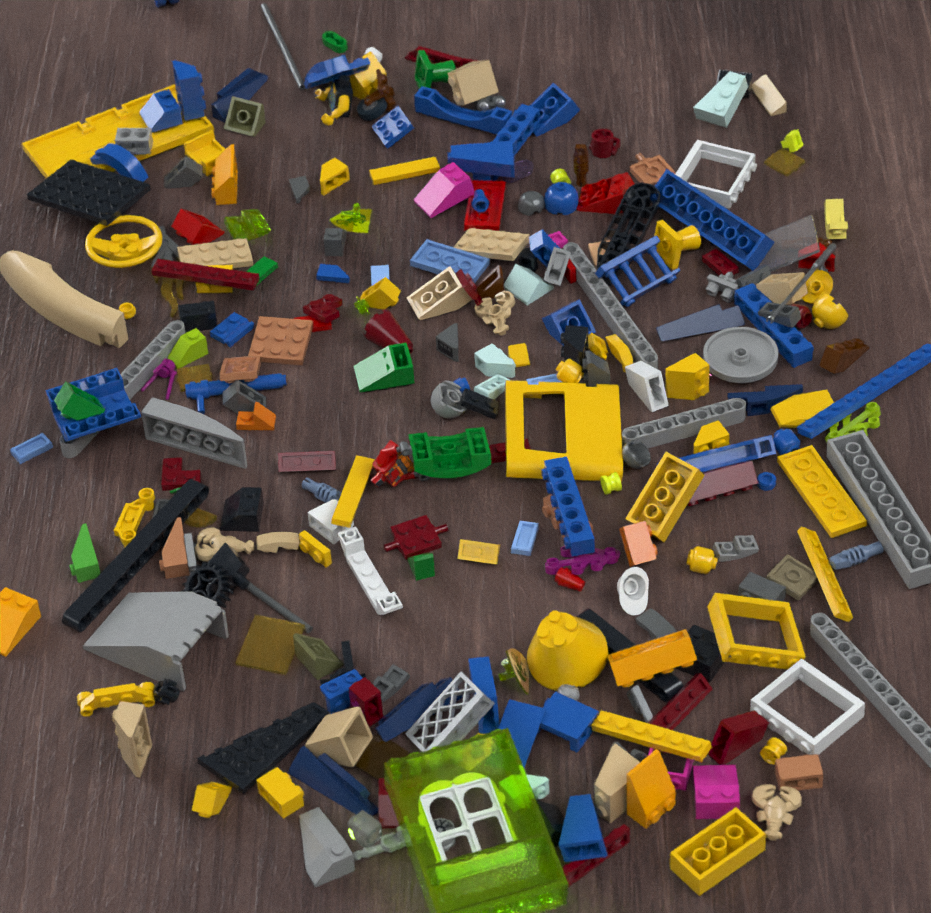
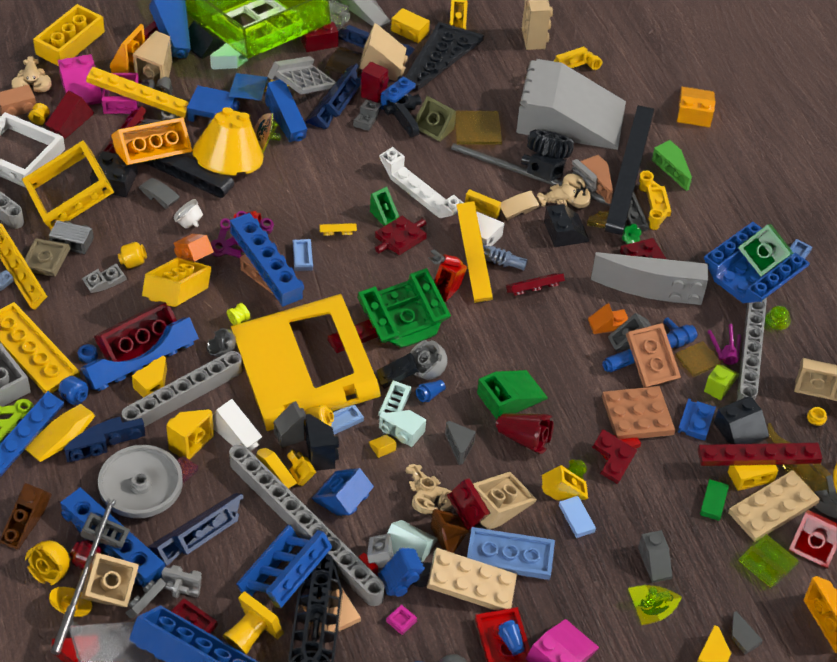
camera: 155 degrees right, 5 degrees up
(332, 273) = (634, 513): blue tile -> none

